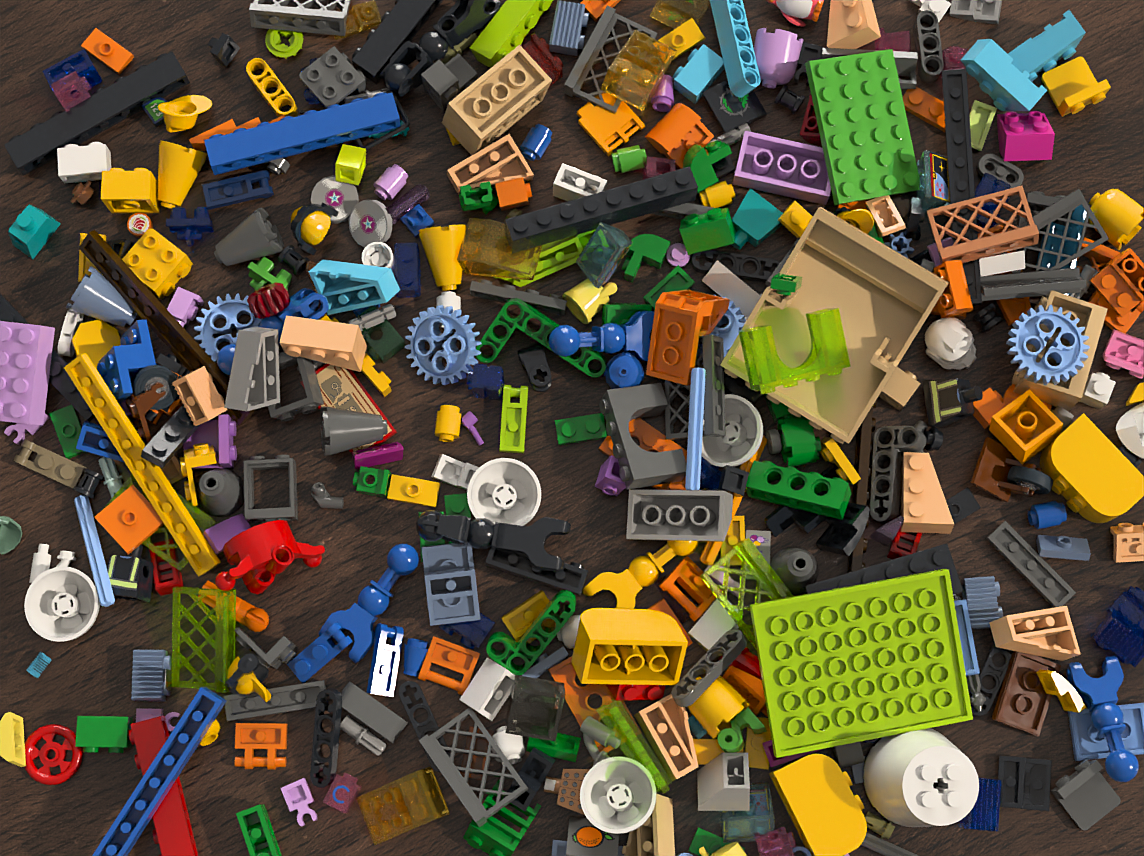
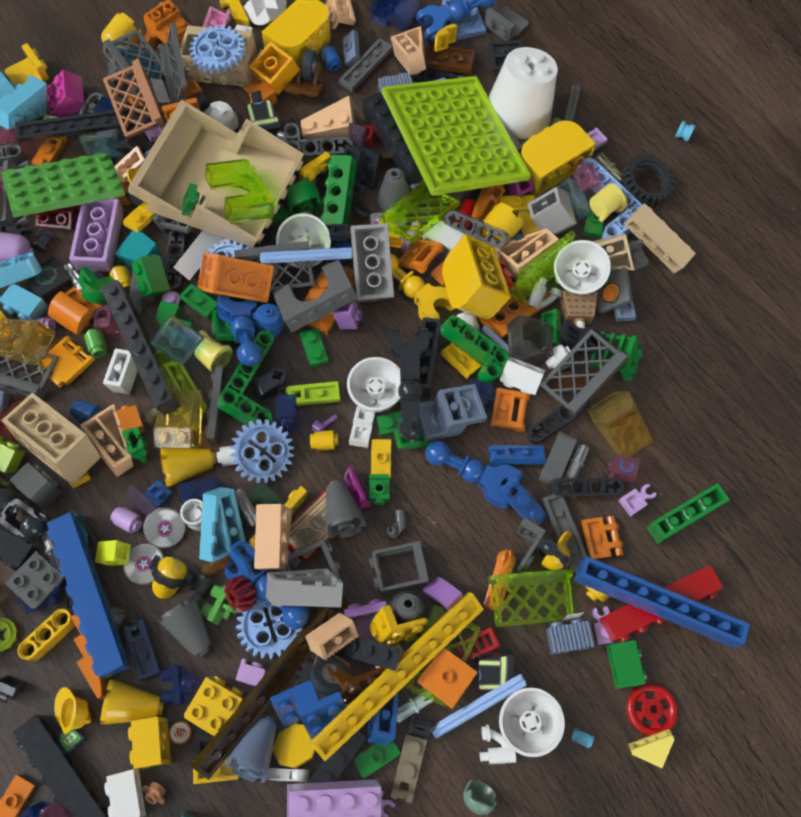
camera: 100 degrees left, 10 degrees down
(262, 554) = (456, 557): red piece -> none
(414, 656) = (508, 435): blue cone -> none
(732, 739) = (520, 209): bright green leg -> none

